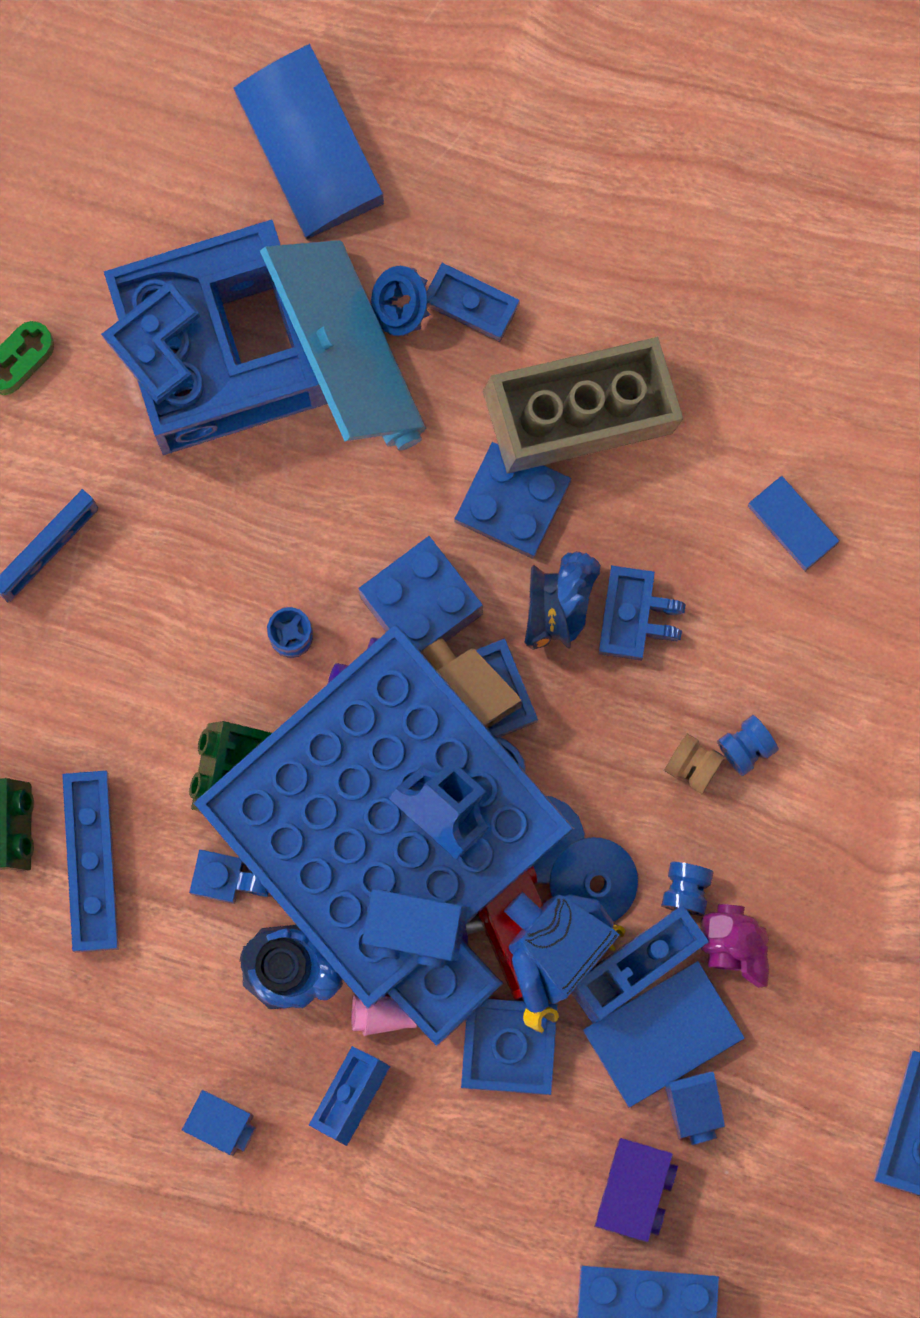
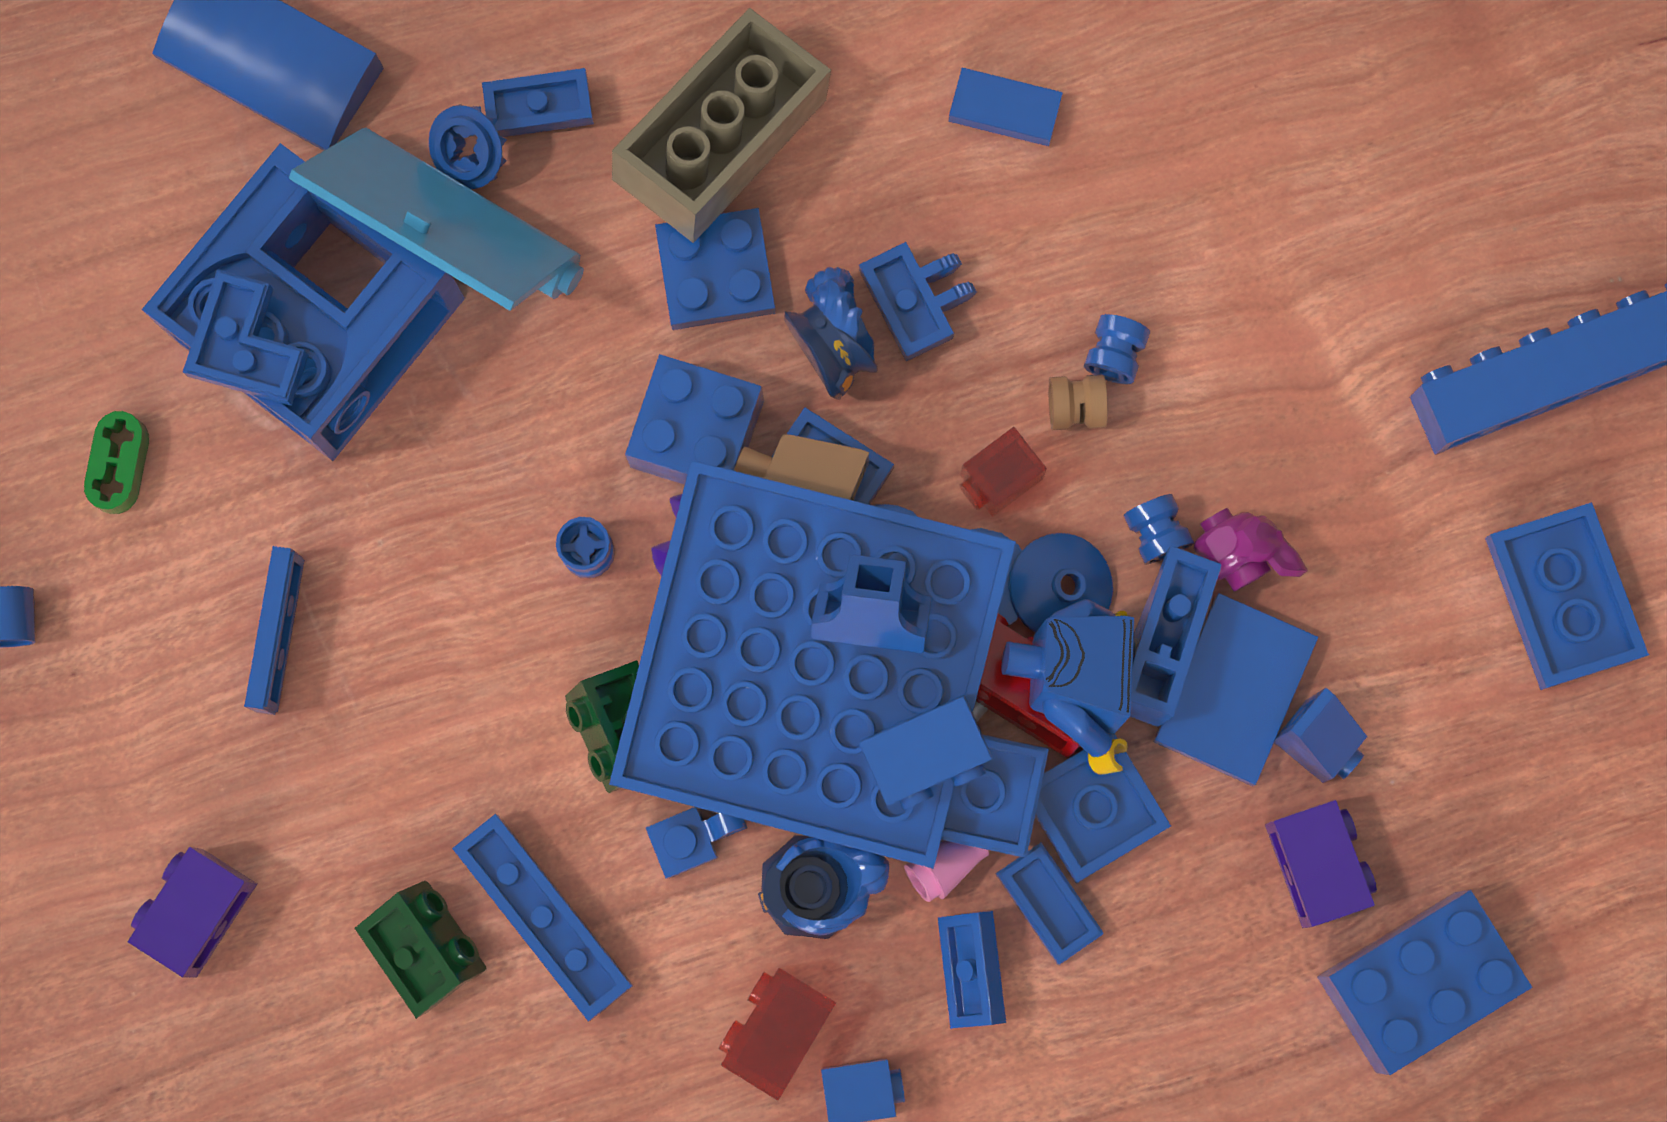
camera: 35 degrees left, 0 degrees up
(191, 1046) = (776, 1033): none -> clear red brick
(433, 1089) = (1049, 903): none -> blue tile
(606, 776) = (1001, 473): none -> clear red brick

